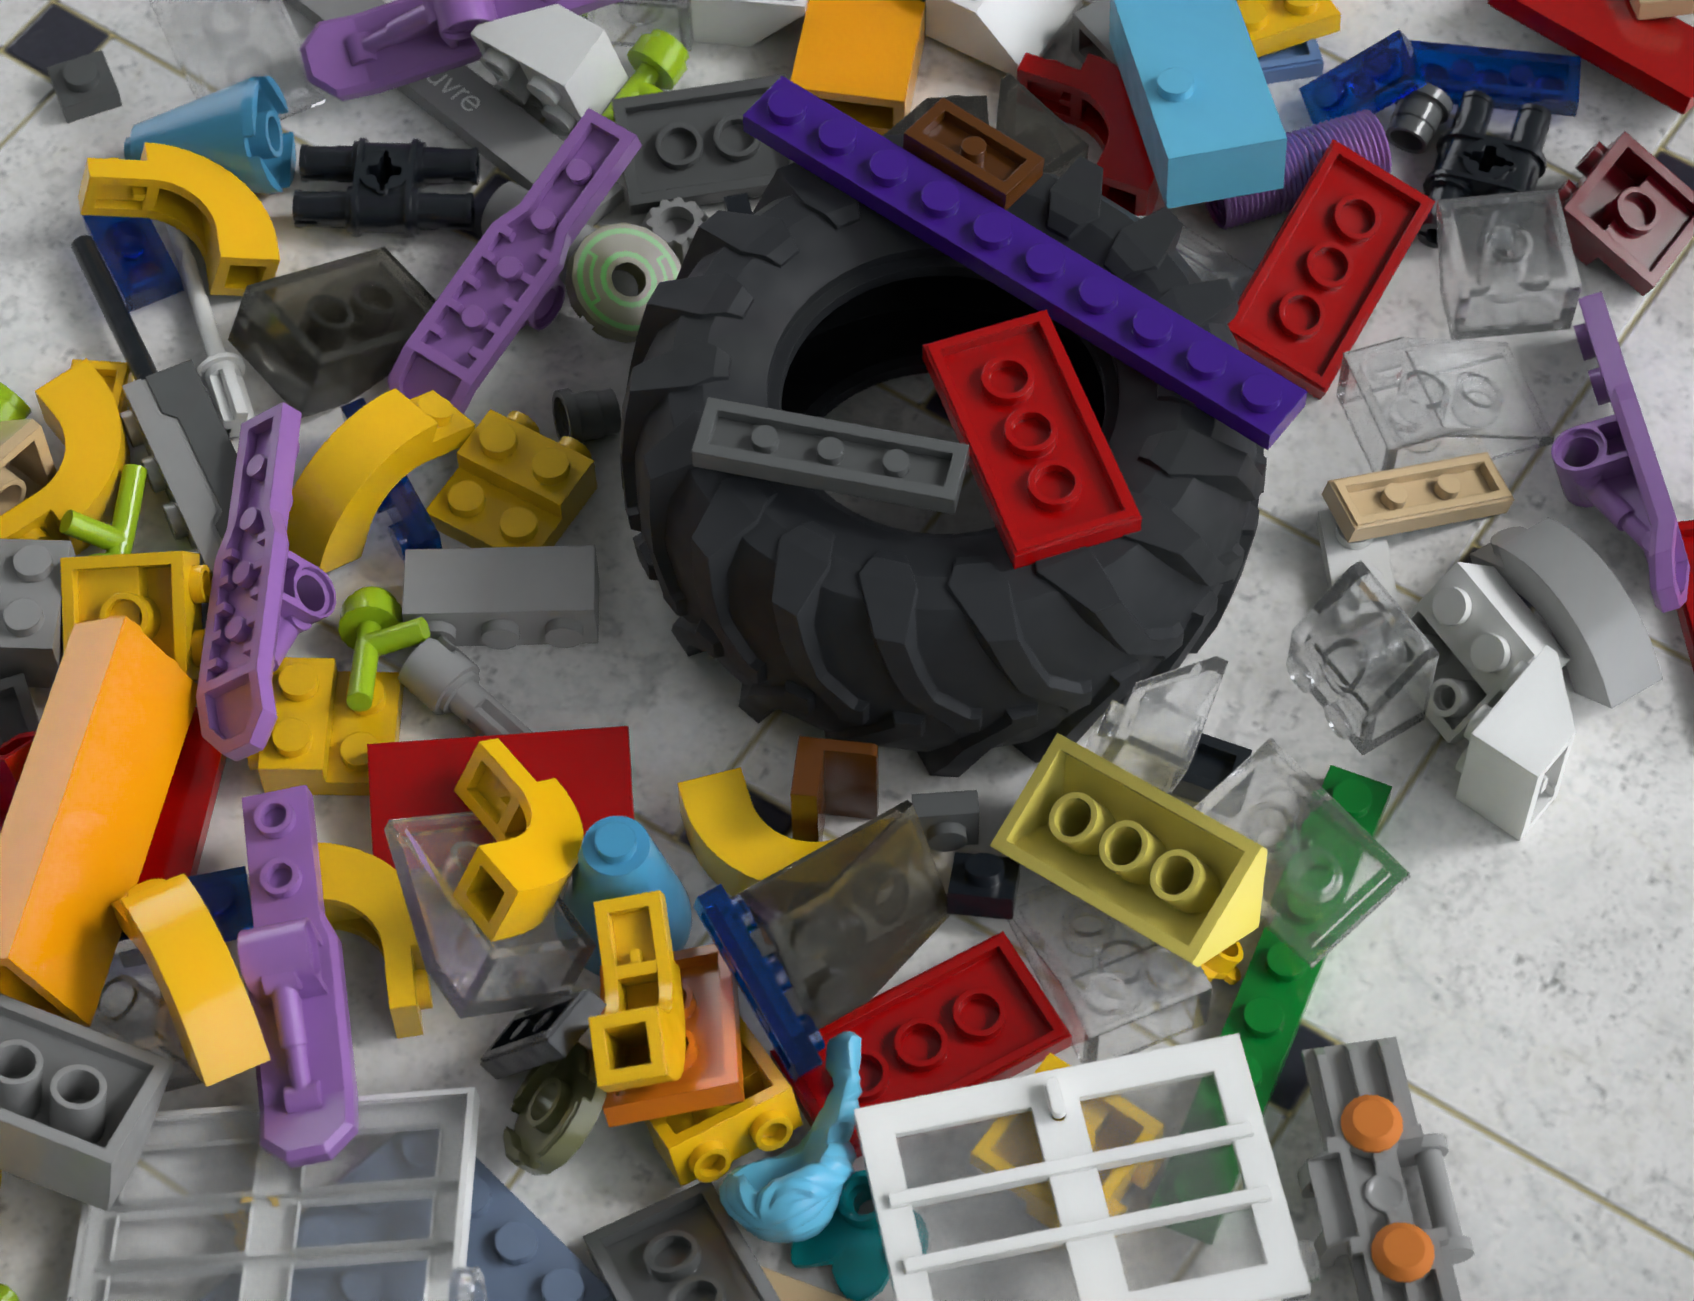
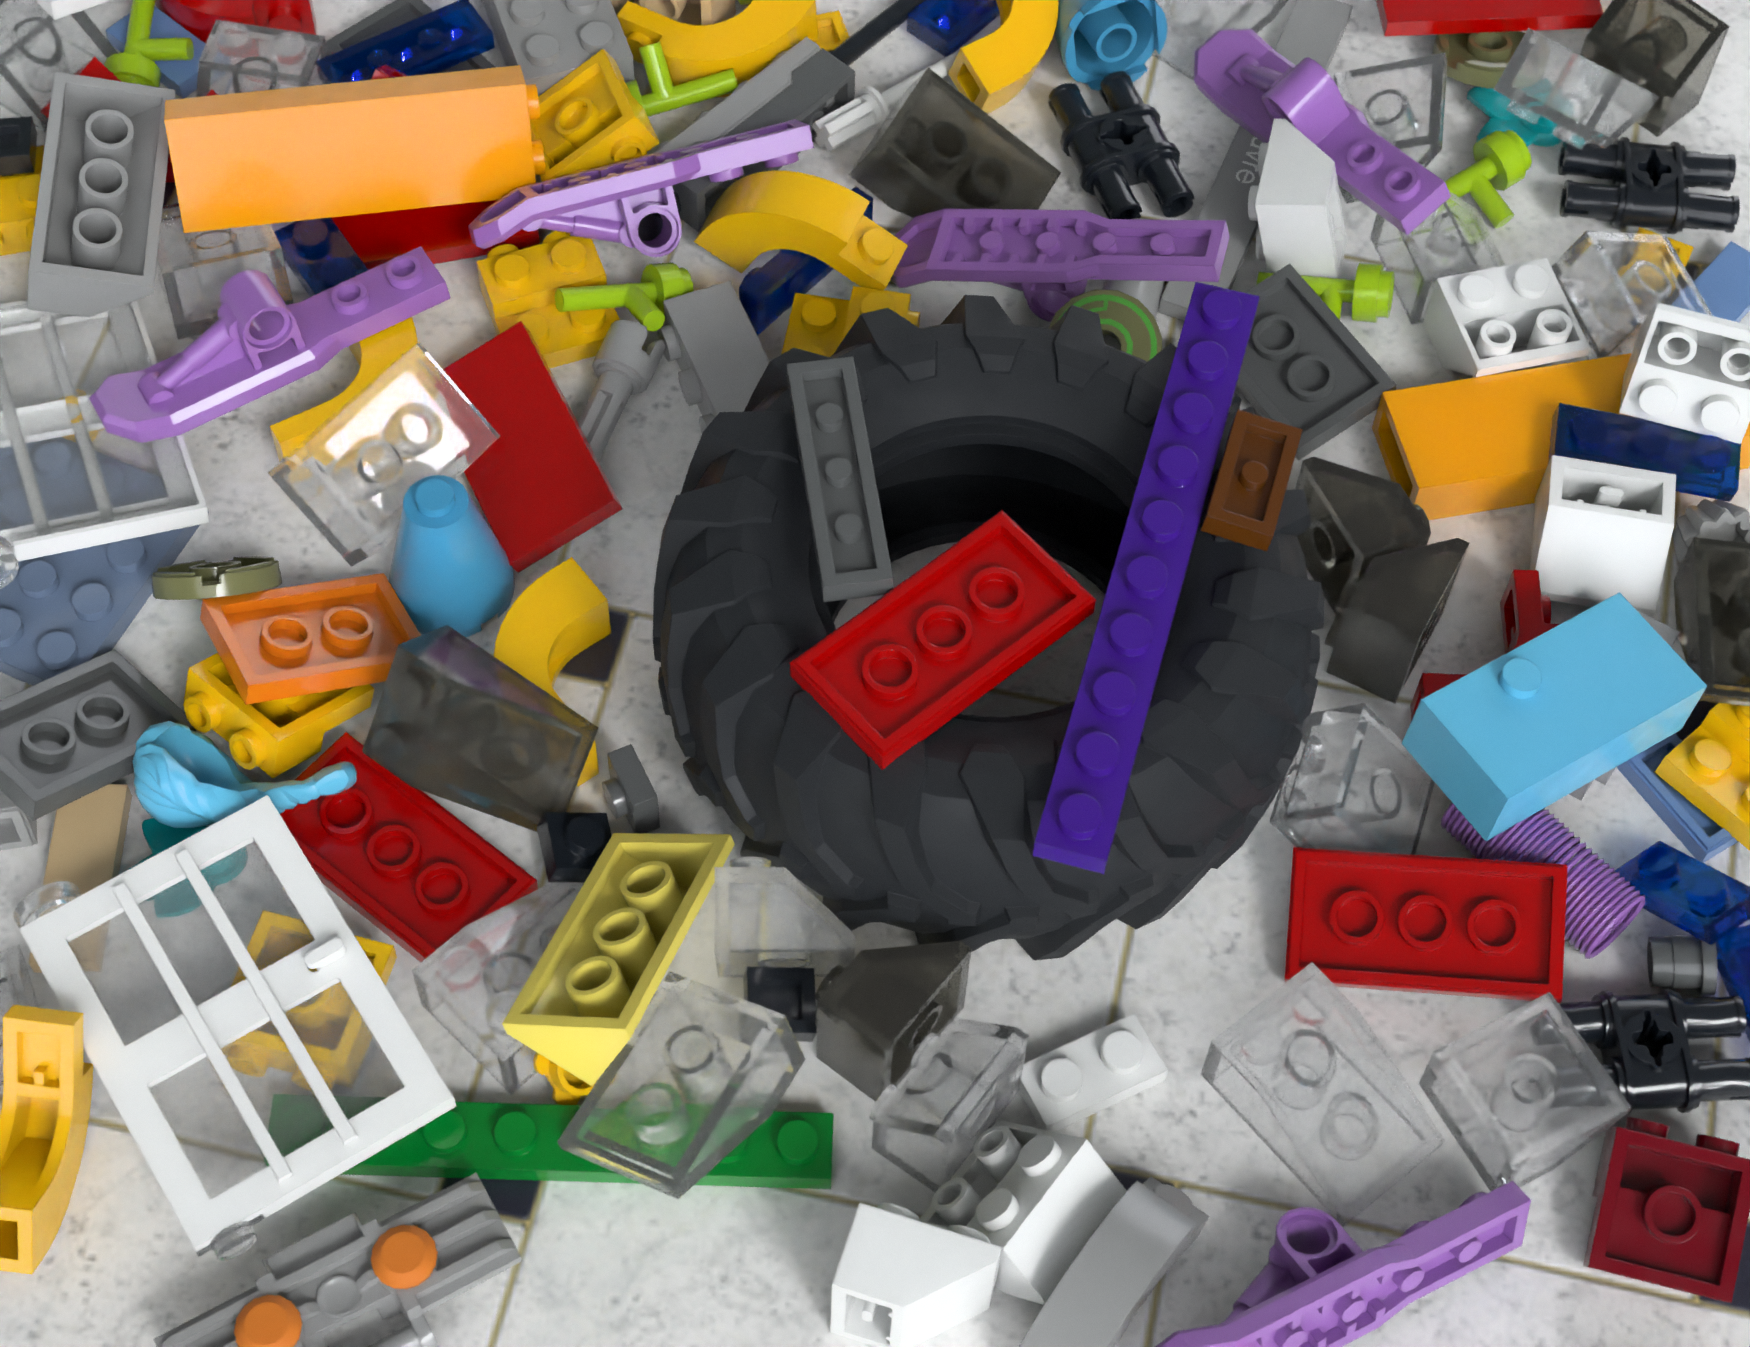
camera: 65 degrees right, 0 degrees up
(194, 976) = (226, 238): yellow arch -> none
(538, 842) = (390, 453): yellow arch -> none
(542, 1034) = (263, 531): black tile -> none
(643, 1025) = (290, 597): yellow arch -> none
(760, 981) = (347, 707): clear blue plate -> none
(832, 780) = (600, 668): reddish brown panel -> none
(1277, 677) = (884, 1009): none -> clear smoke slope
(1417, 497) = (1191, 1101): tan tile -> none

